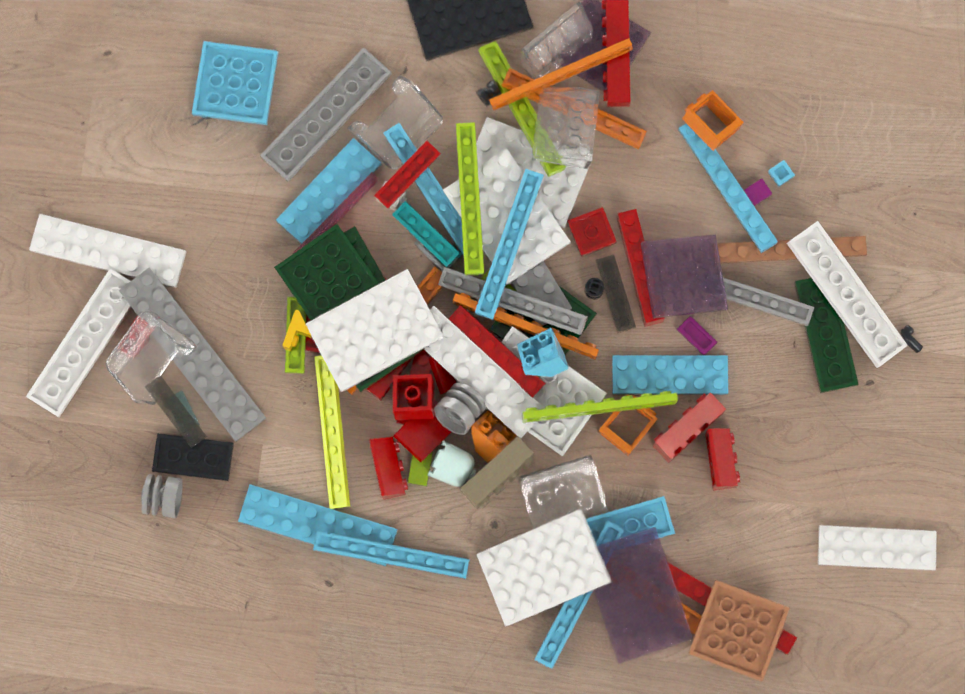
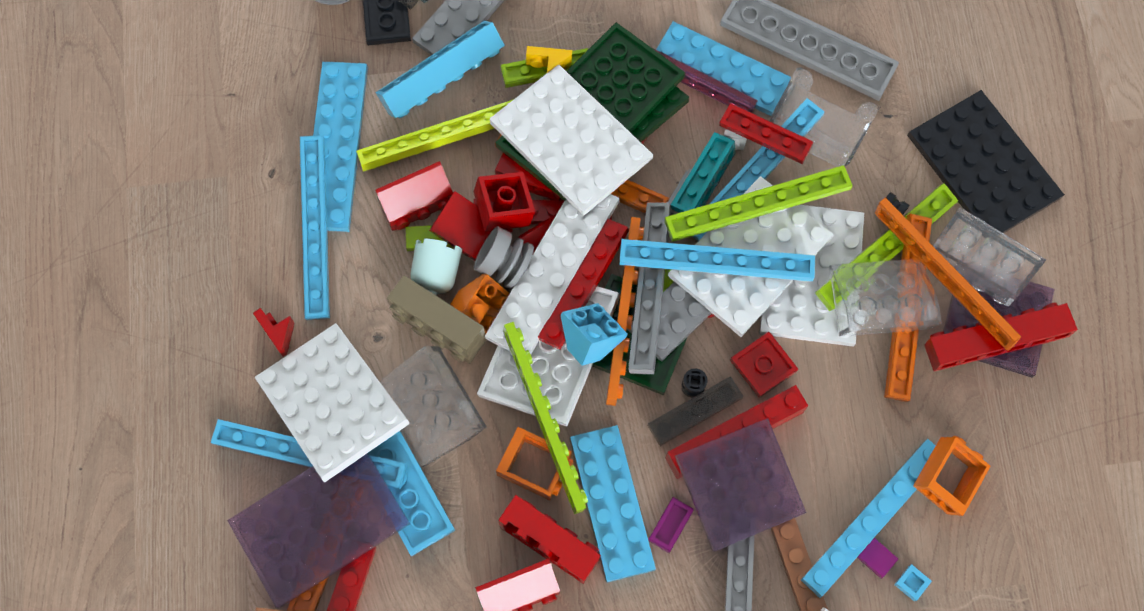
camera: 70 degrees right, 10 degrees down
(274, 422) = (440, 69): none -> medium azure brick
(477, 601) = (278, 333): none -> red slope

